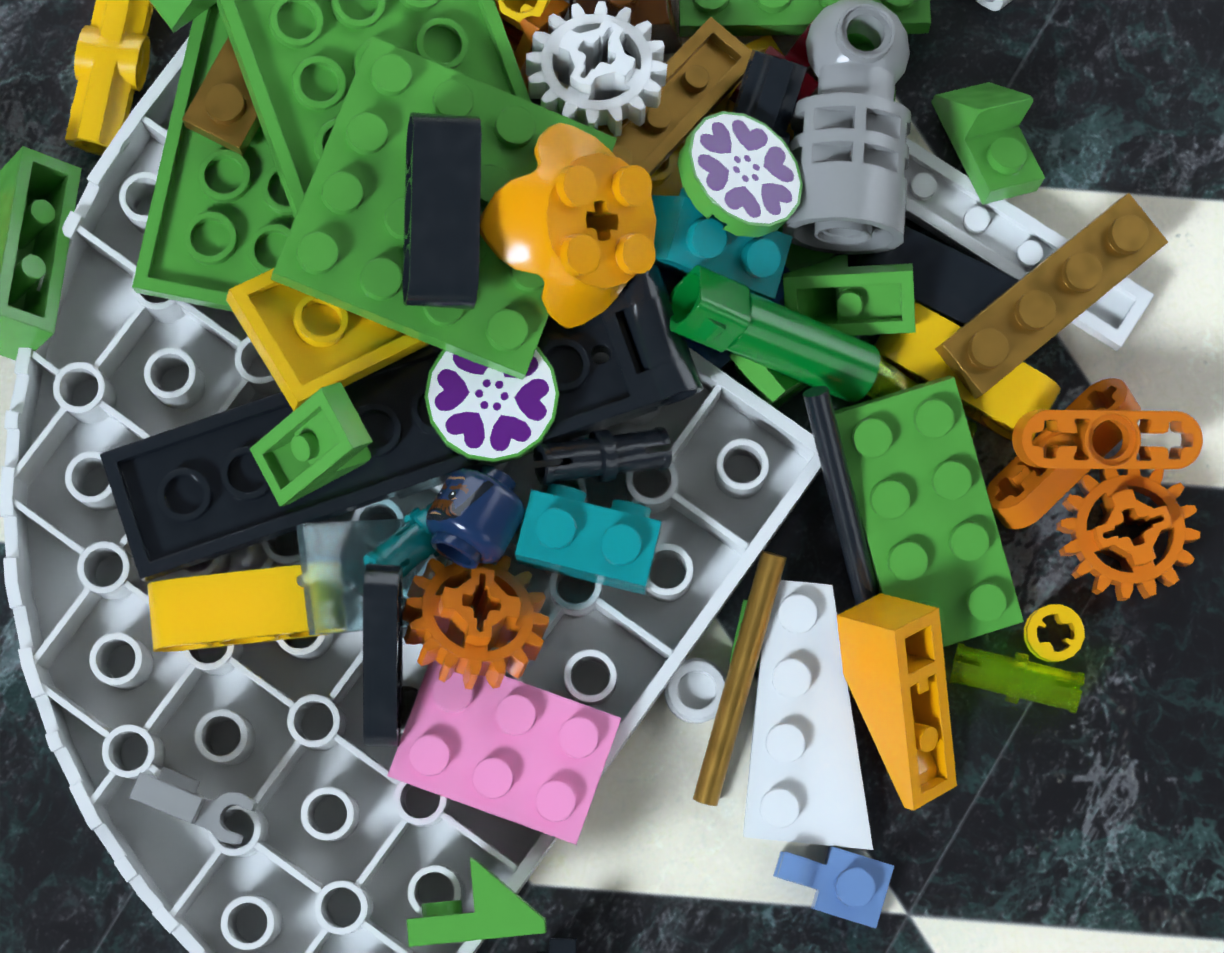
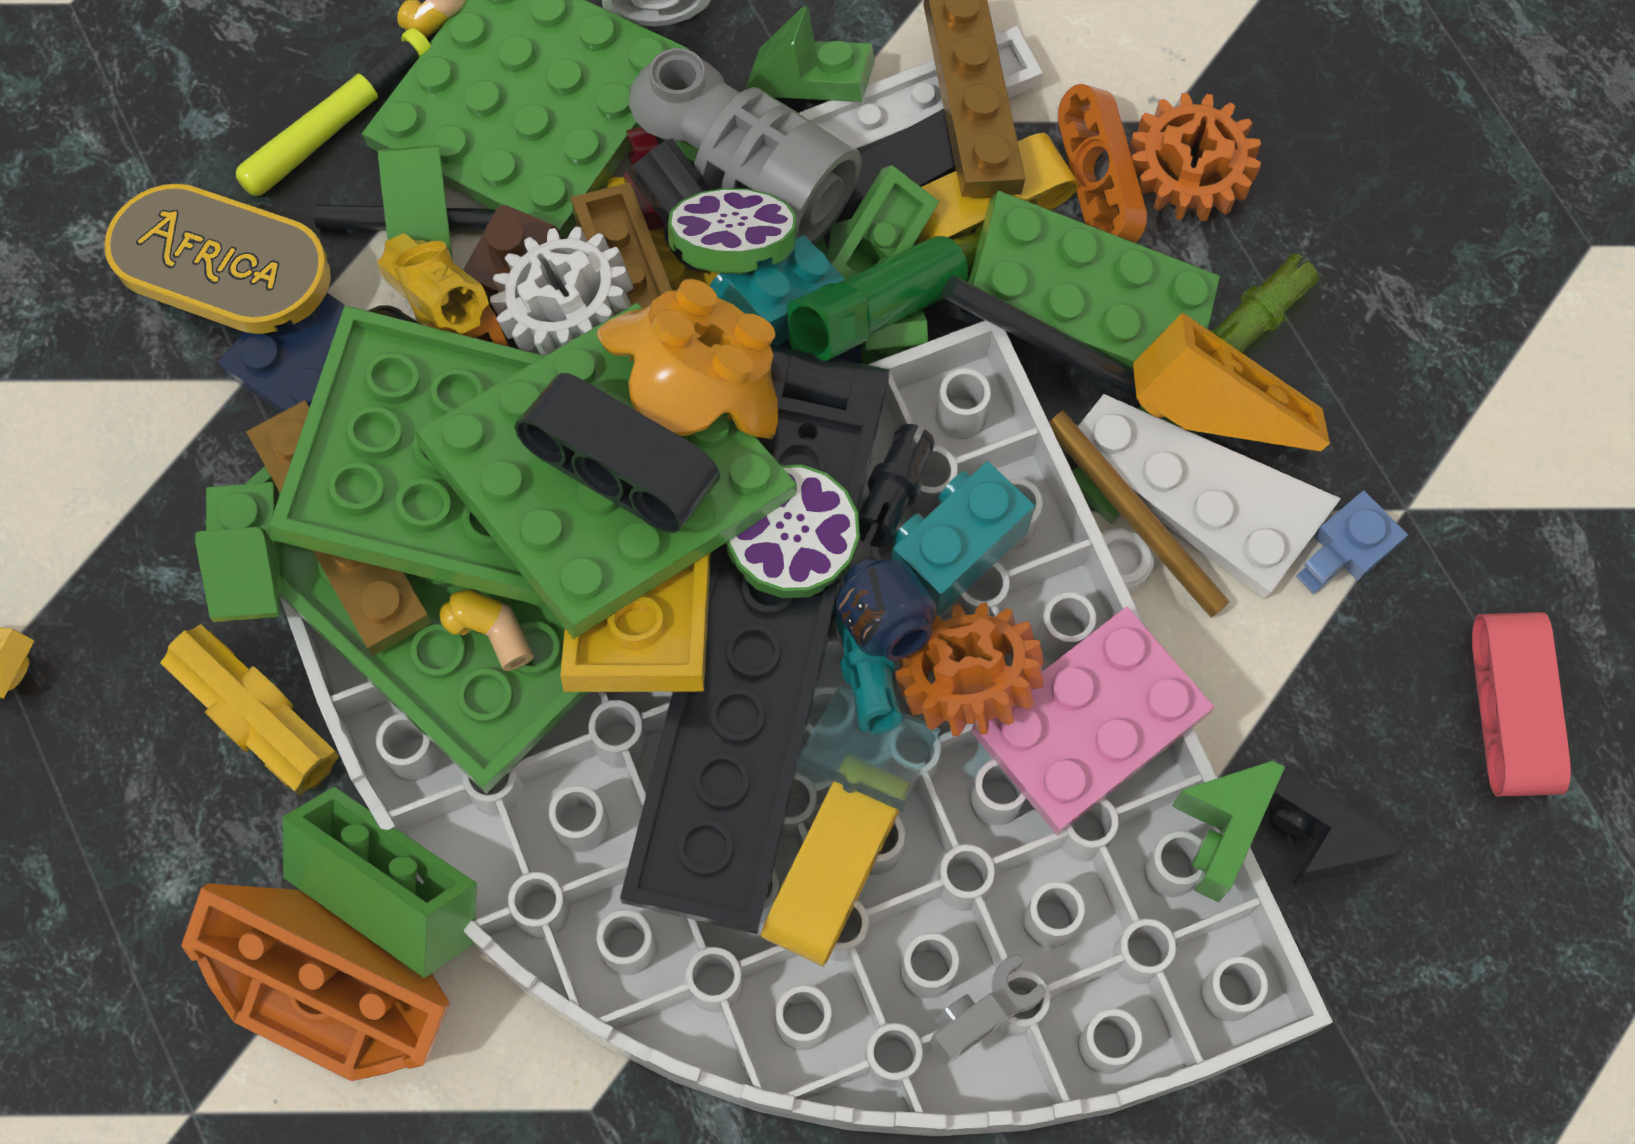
camera: 60 degrees left, 10 degrees down
(268, 203) = (490, 617): none -> arm
(313, 445) = (741, 695): bright green slope -> none
(382, 654) = (957, 759): black beam -> none
(1062, 616) = (1228, 249): yellow bush -> none
(1150, 456) = (1116, 137): orange beam -> none

